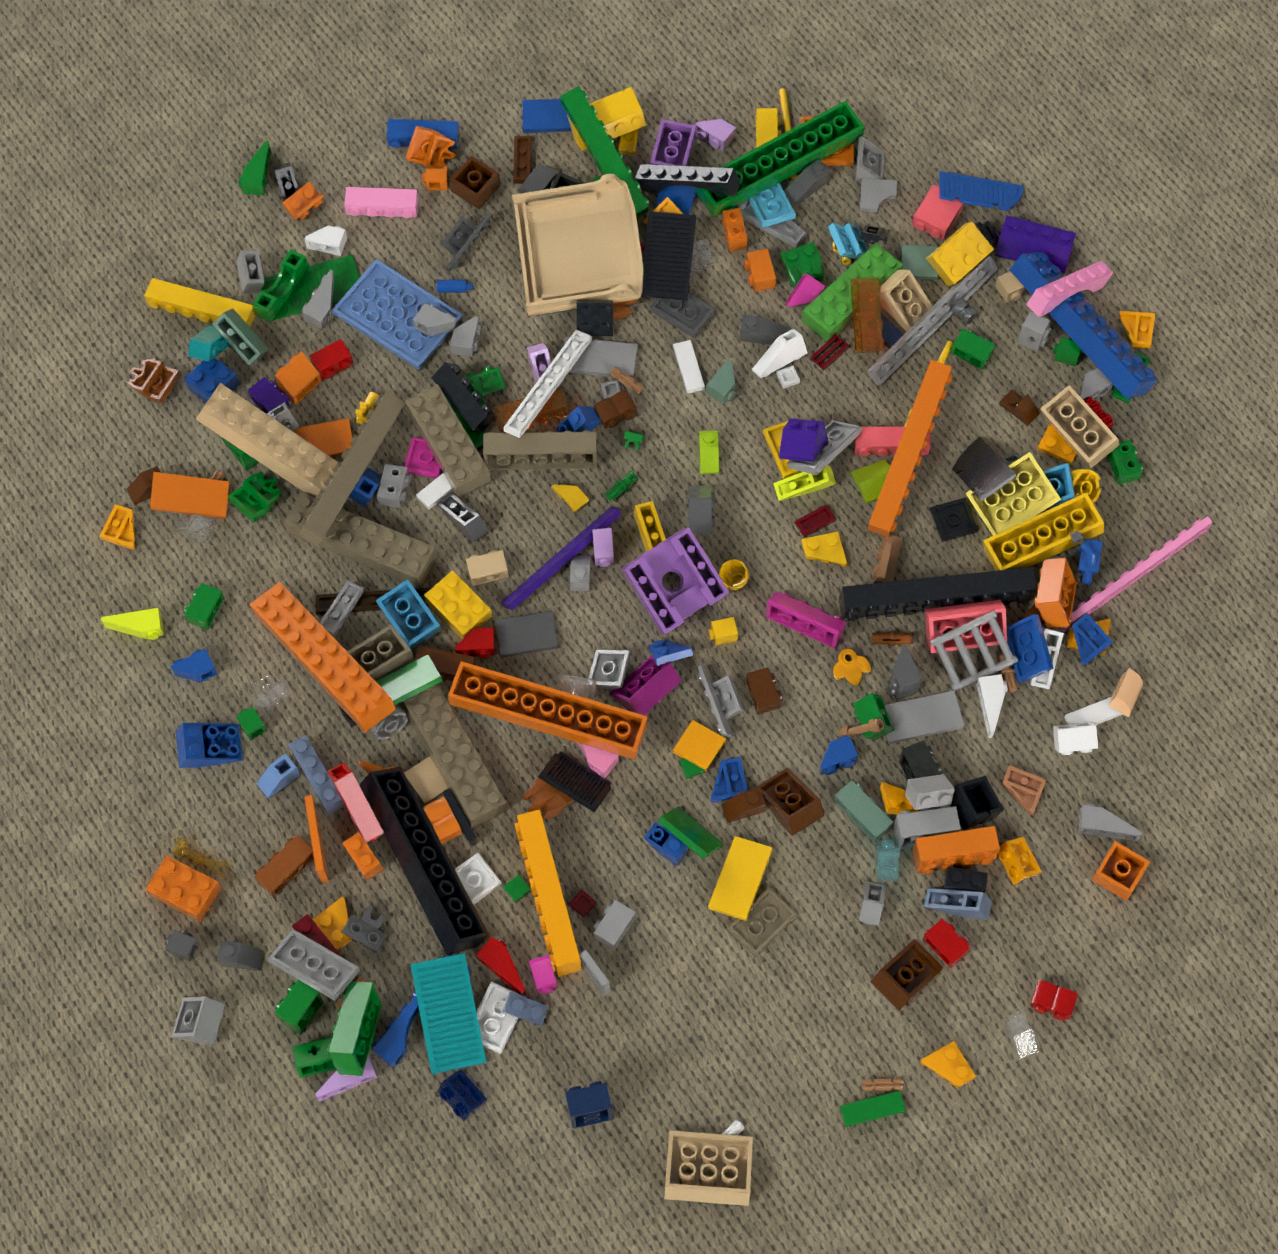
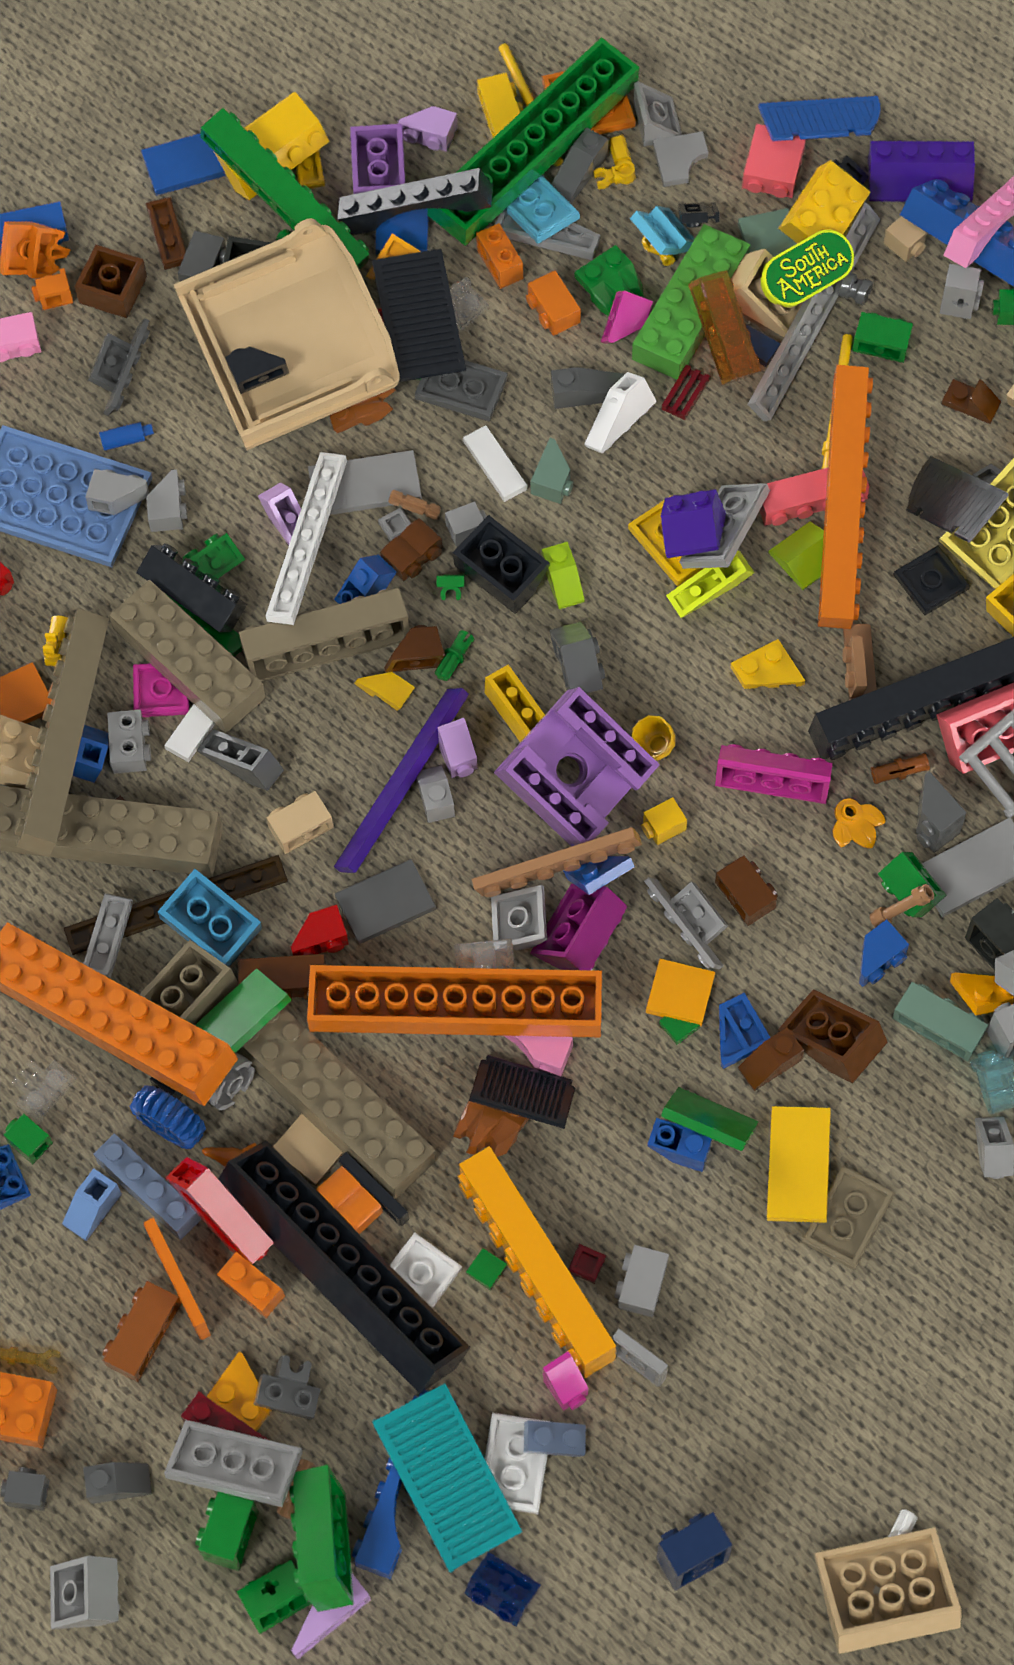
camera: 15 degrees left, 0 degrees up
(342, 734) = (167, 1117): none -> blue gear
(457, 605) = (275, 887): yellow brick -> none
(498, 960) = (495, 1380): red slope -> none
(548, 263) = (254, 367): none -> black slope
(555, 407) = (327, 569): clear orange brick -> none
(595, 317) = (343, 427): black plate -> none
(597, 476) = (417, 650): none -> reddish brown slope
(648, 638) = (566, 859): none -> medium nougat plate
(656, 401) = (463, 521): none -> light grey brick
(670, 433) = (501, 564): none -> black slope
(788, 377) = (638, 442): white tile -> none
(815, 521) = (741, 632): dark red tile -> none
(834, 194) = (624, 169): none -> yellow bar
(934, 290) = (807, 268): none -> tile

